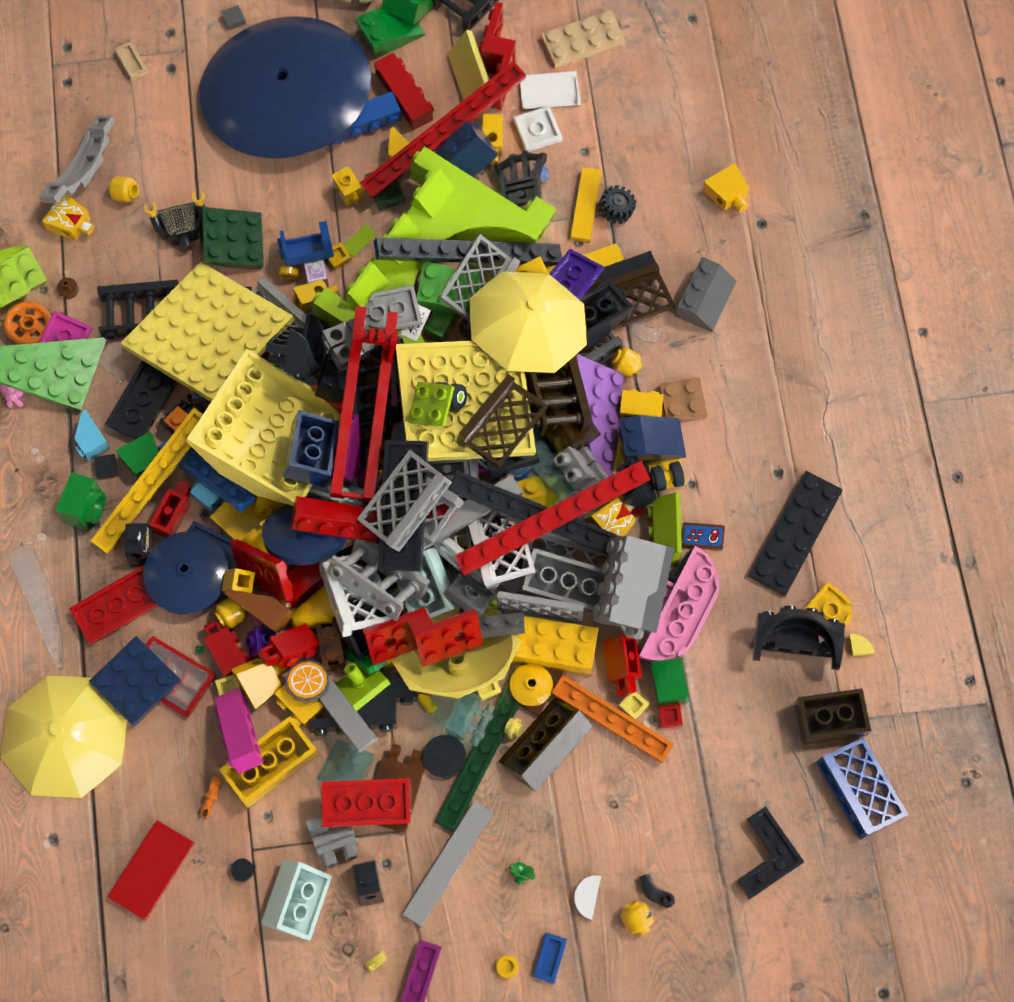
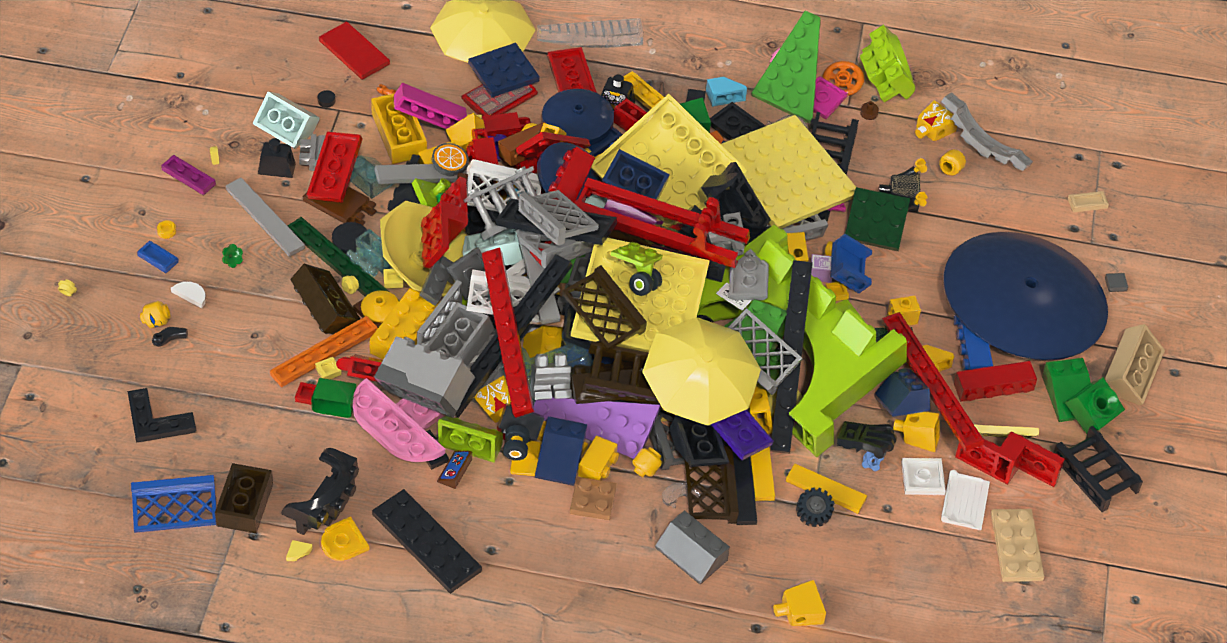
camera: 105 degrees right, 20 degrees down
(81, 502) = (666, 68): green piece -> none

